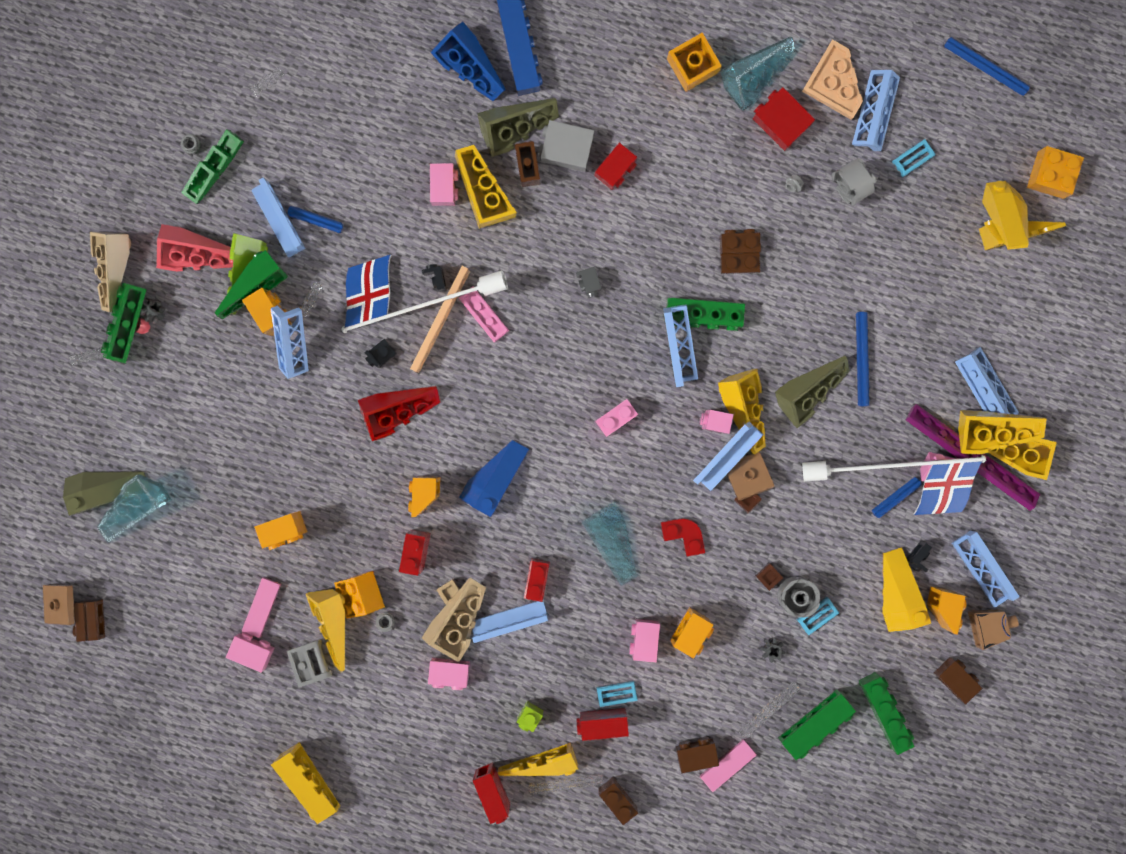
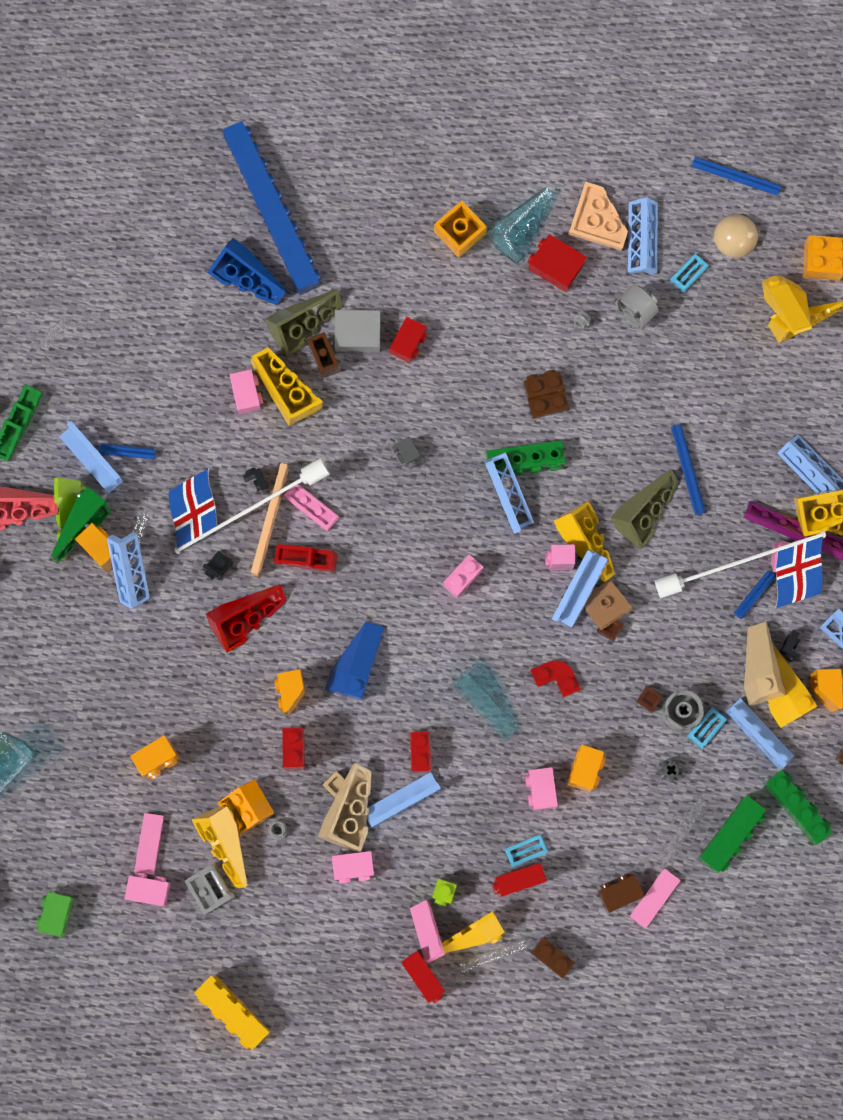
camera: 15 degrees left, 10 degrees down
(158, 655) = (55, 914): none -> bright green brick
(467, 365) = (306, 558): none -> red slope
(505, 752) = (427, 931): none -> bright pink tile
(867, 634) = (760, 734): none -> light blue fence
(885, 574) = (762, 671): none -> tan wedge
(970, 129) = (736, 236): none -> tan piece

